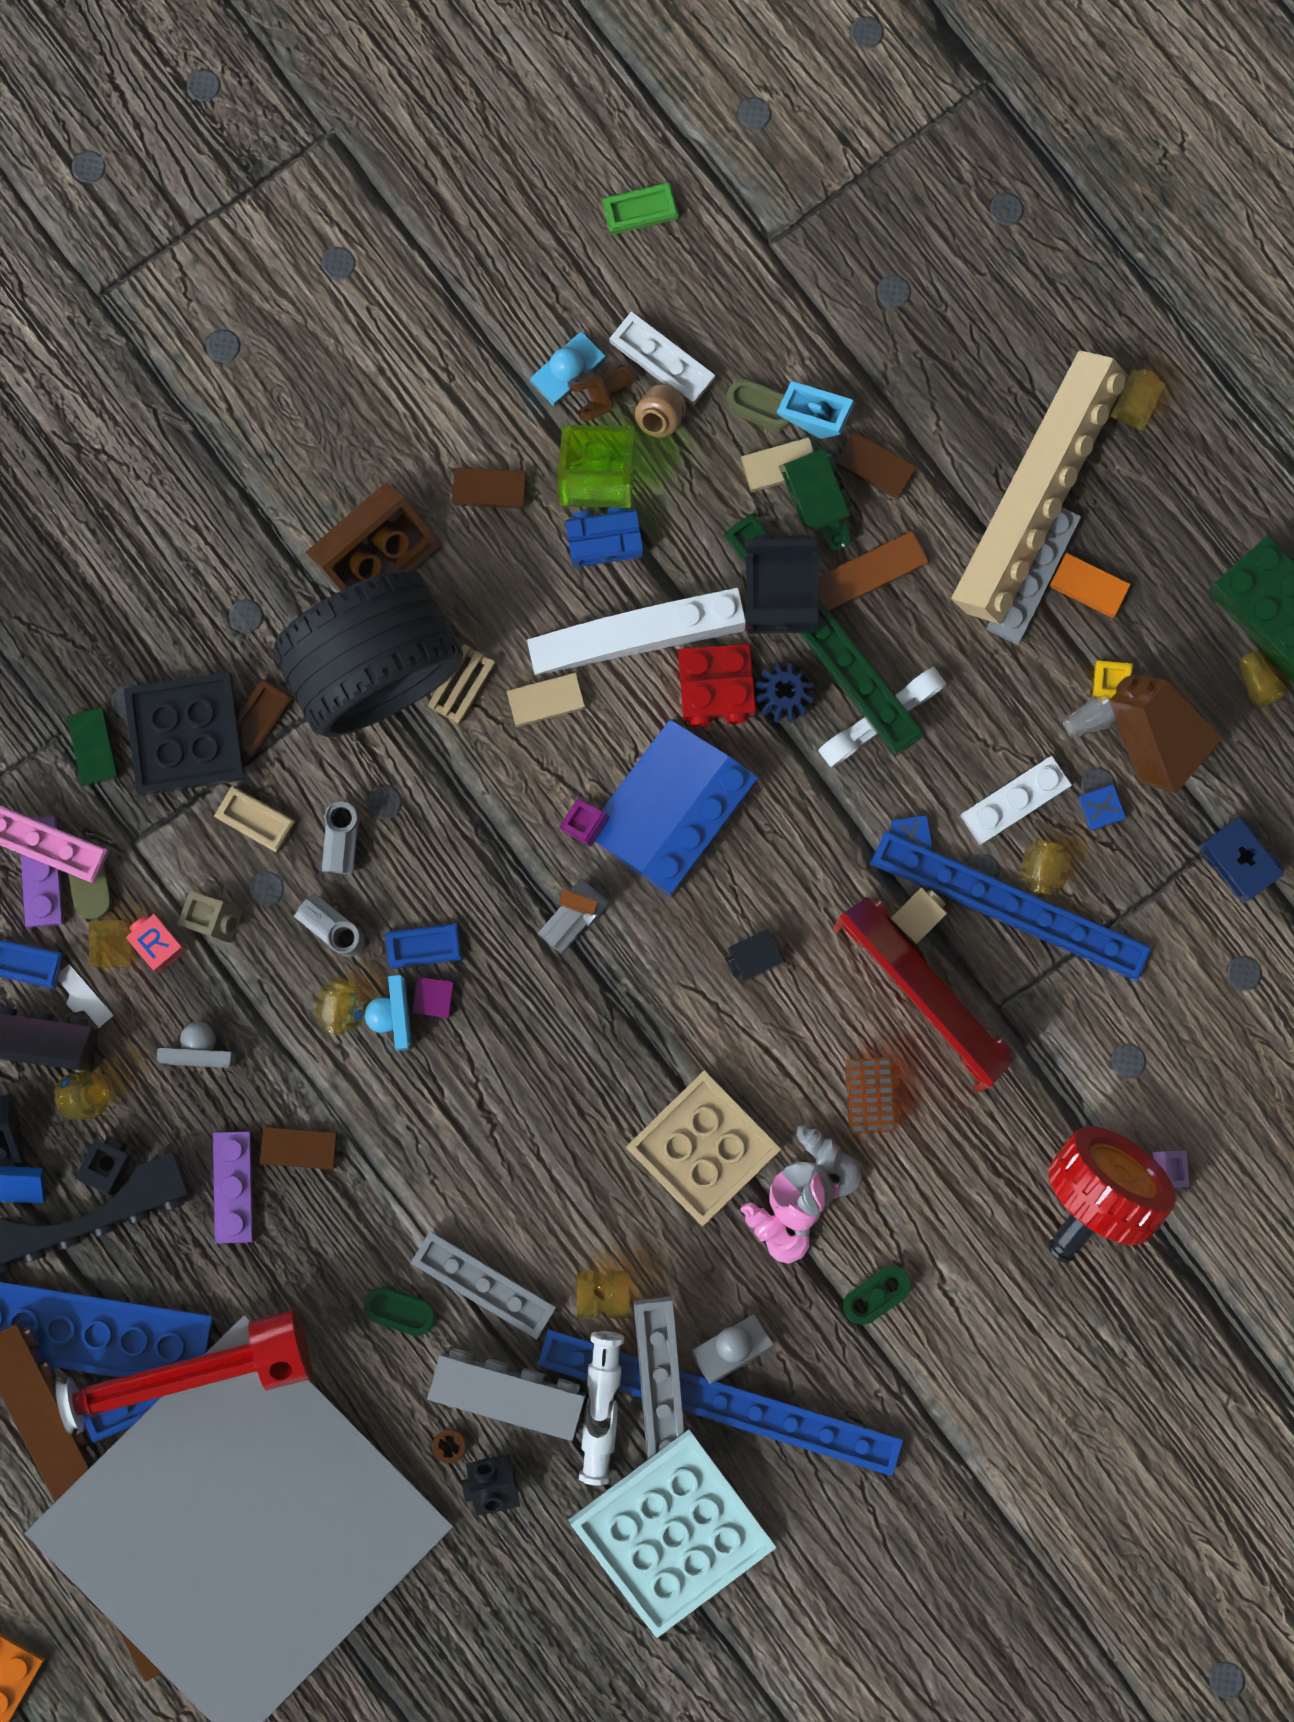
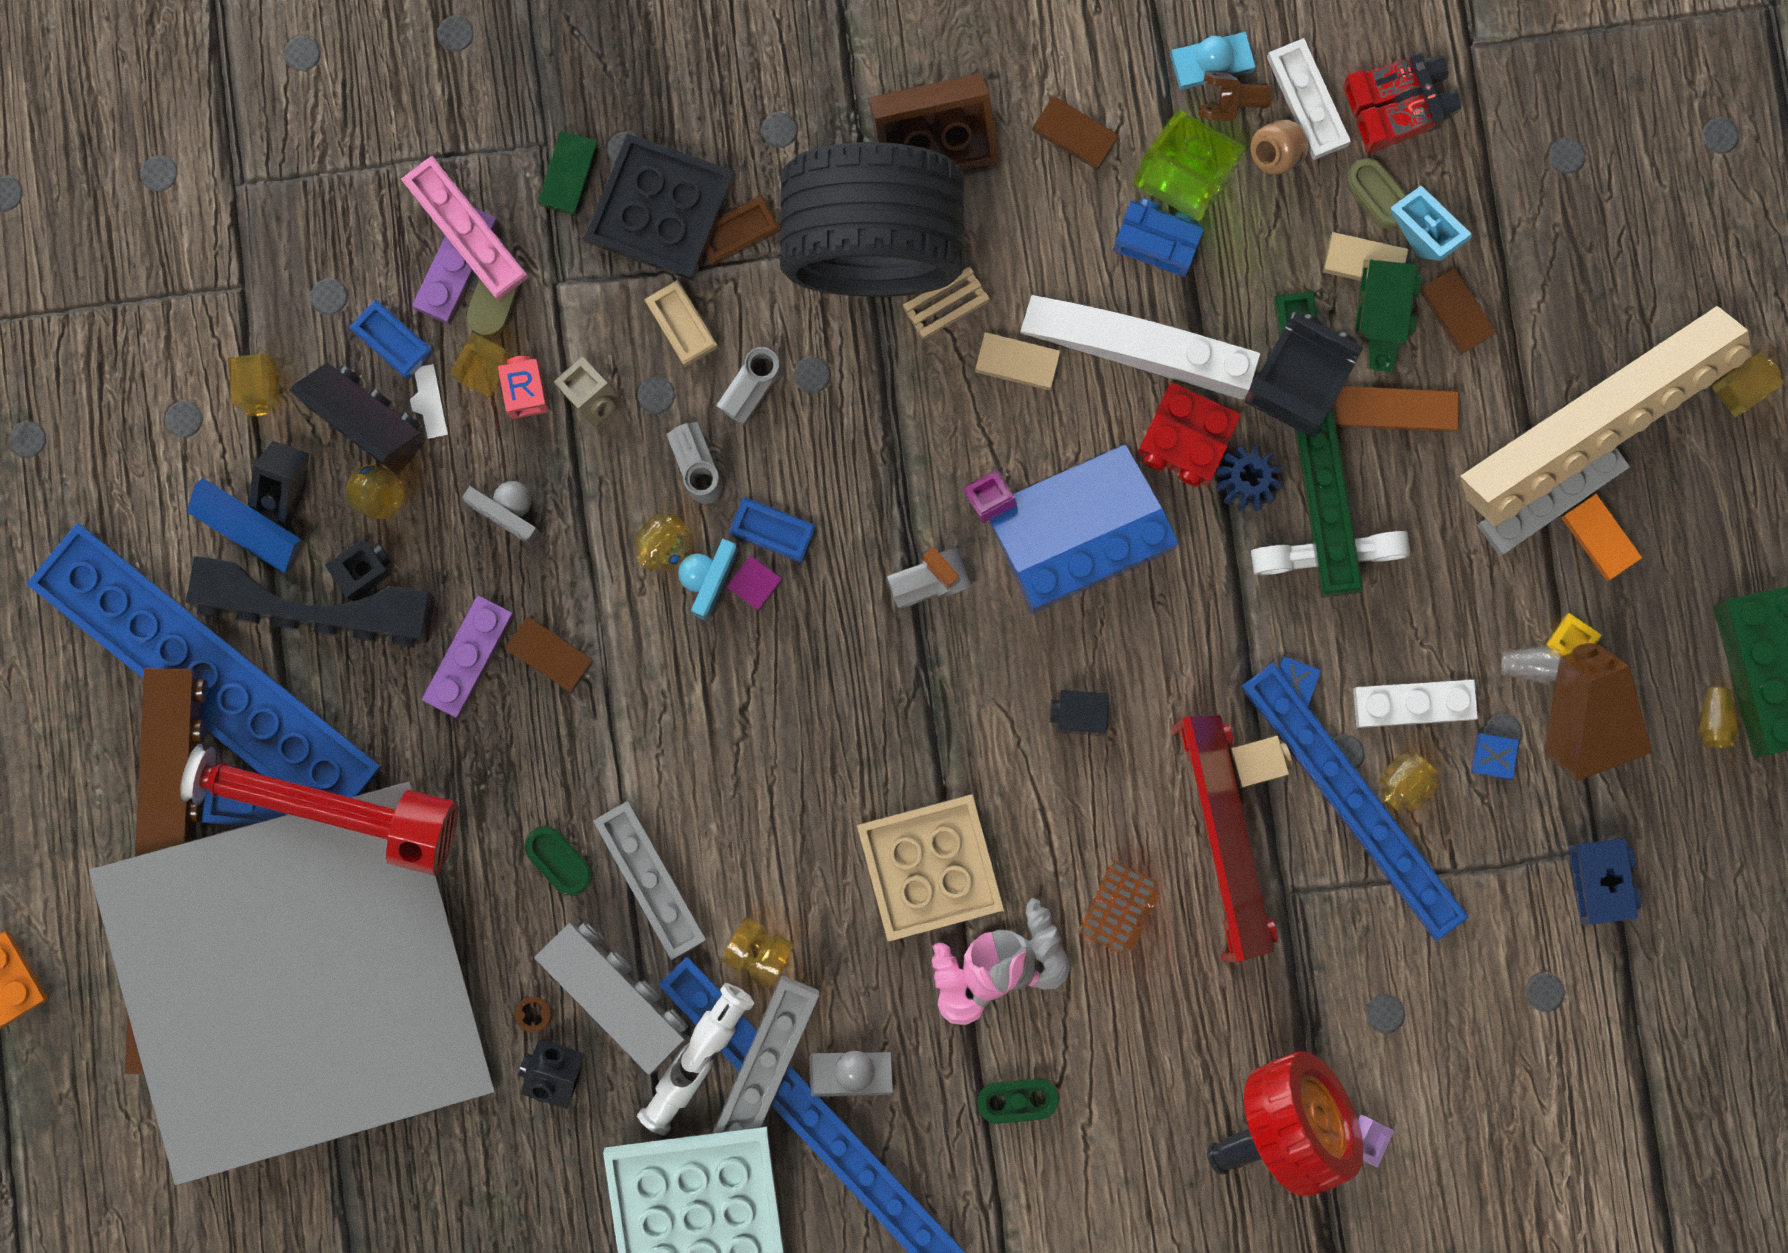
camera: 30 degrees right, 0 degrees up
(736, 320) = (1399, 101): none -> hips

